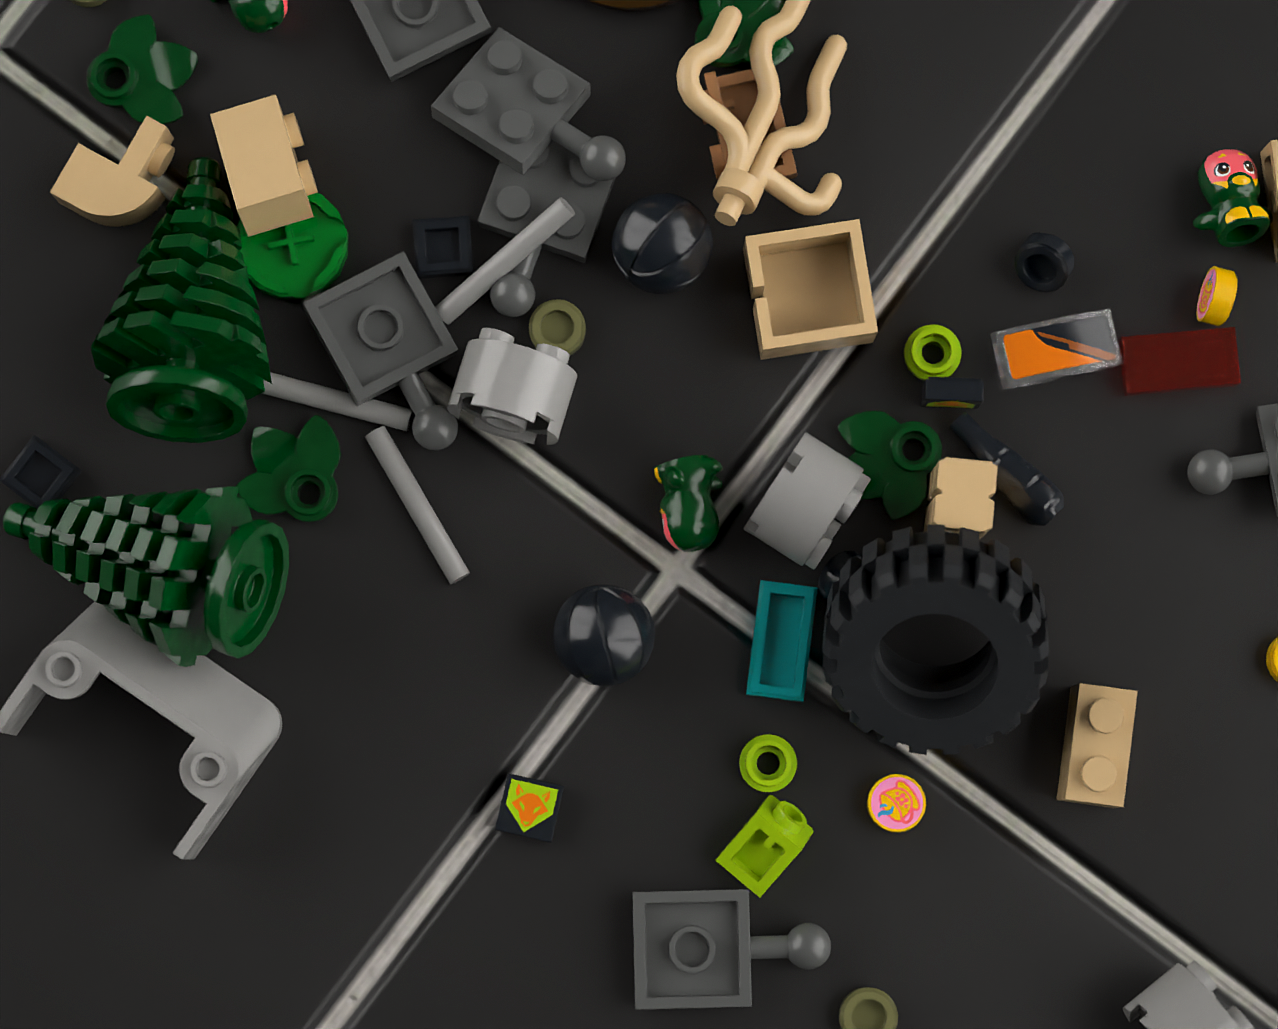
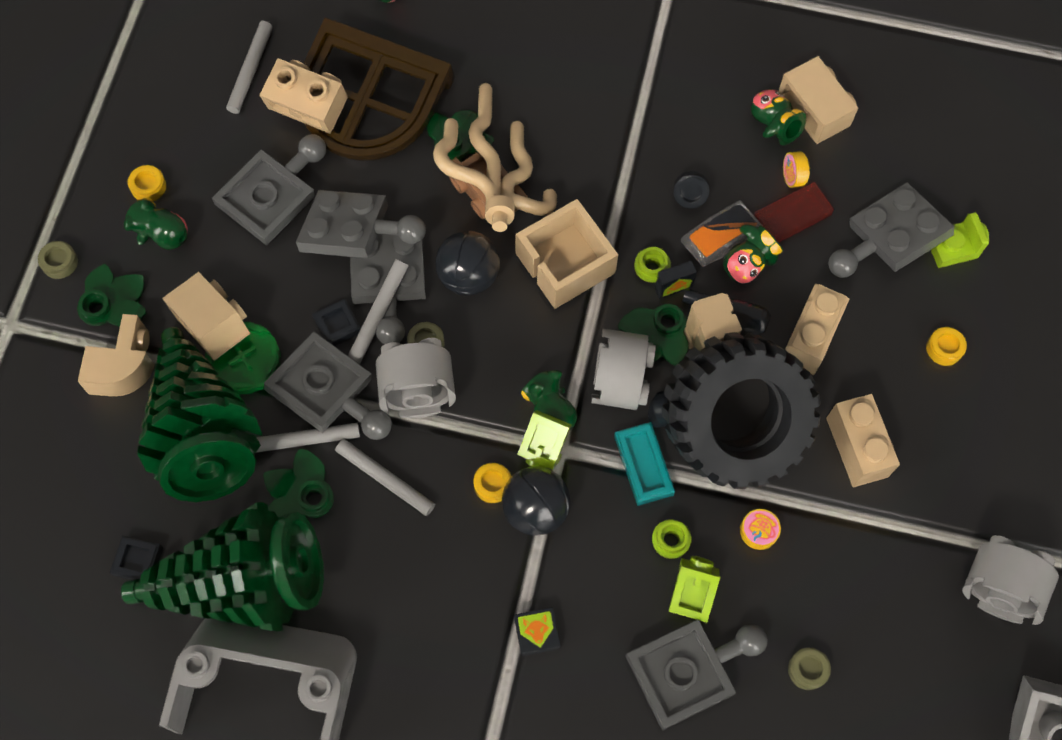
camera: 25 degrees left, 15 degrees down
(559, 575) = (490, 482): none -> yellow tile
(652, 556) = (544, 440): none -> bracket
(1074, 408) = (750, 257): none -> animal
(1114, 556) = (816, 326): none -> tan brick

